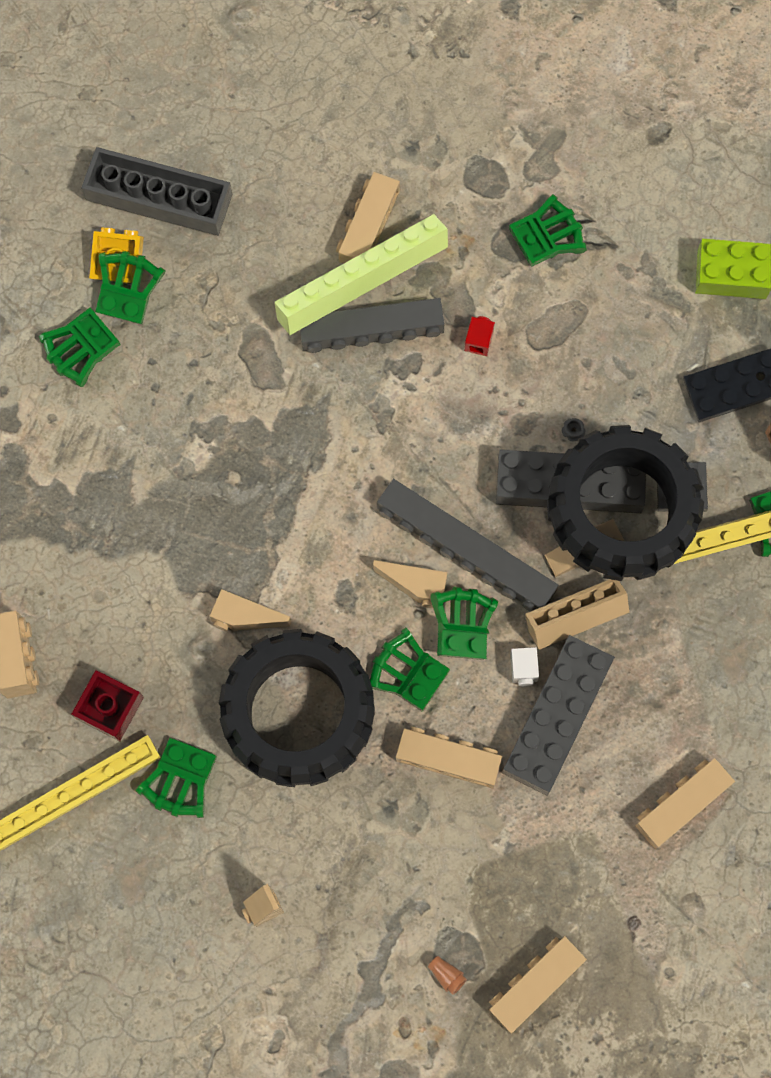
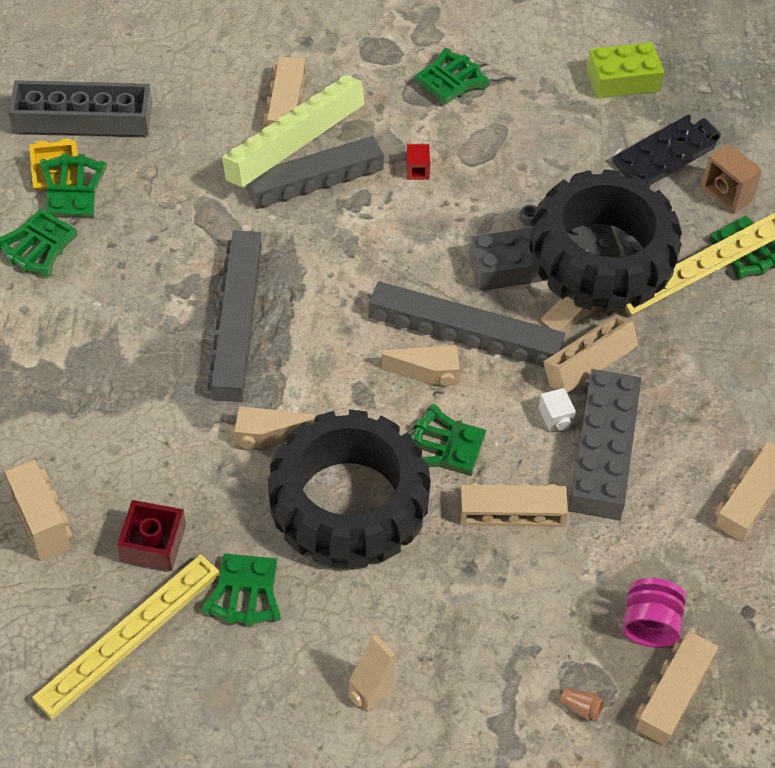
camera: 20 degrees left, 20 degrees down
(248, 479) = (236, 317): none -> dark grey brick
(459, 639) = (487, 399): green plate -> none
(539, 909) = (654, 612): none -> dark pink wheel

